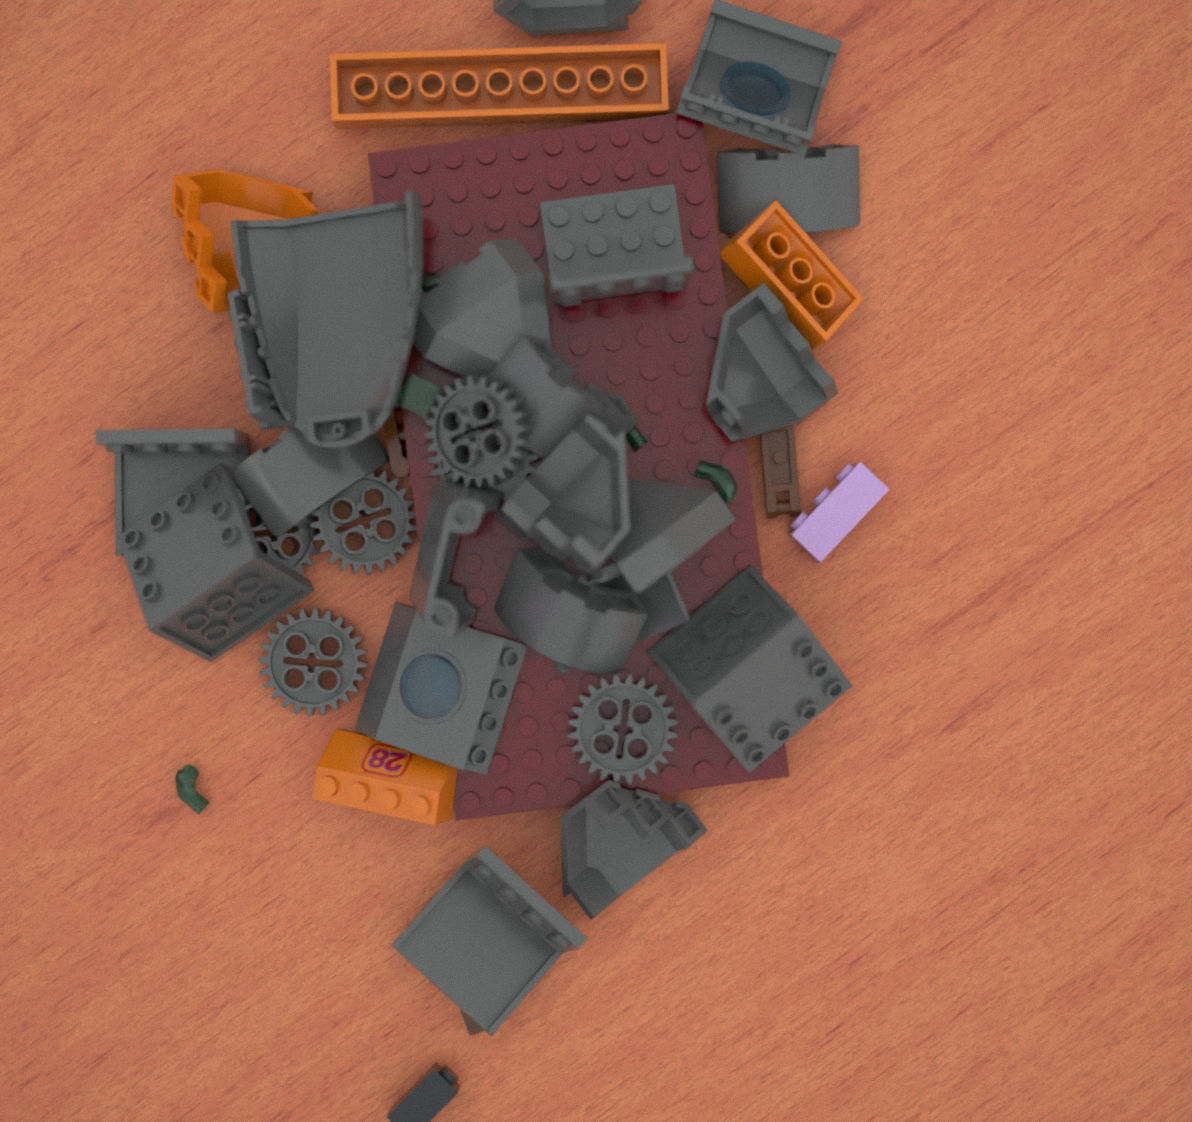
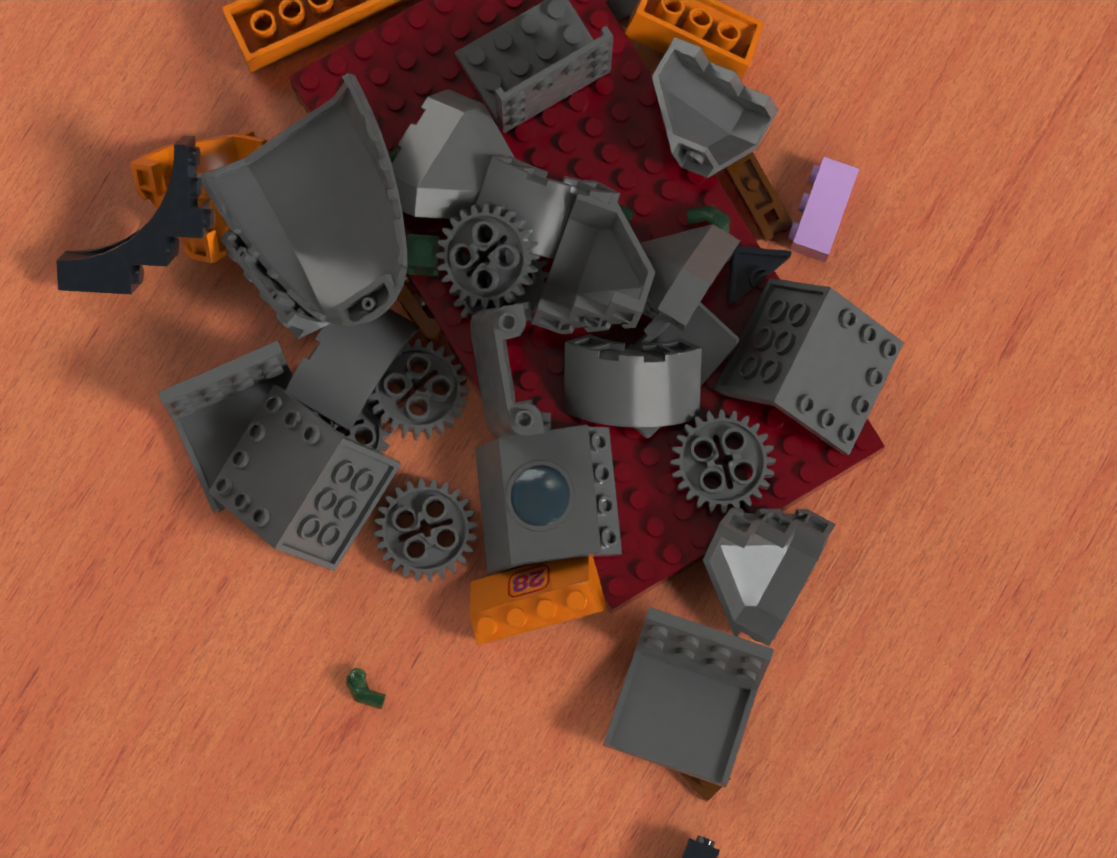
camera: 25 degrees left, 10 degrees down
(125, 273) = (119, 265): none -> black arch
(737, 546) = (751, 267): none -> black tile

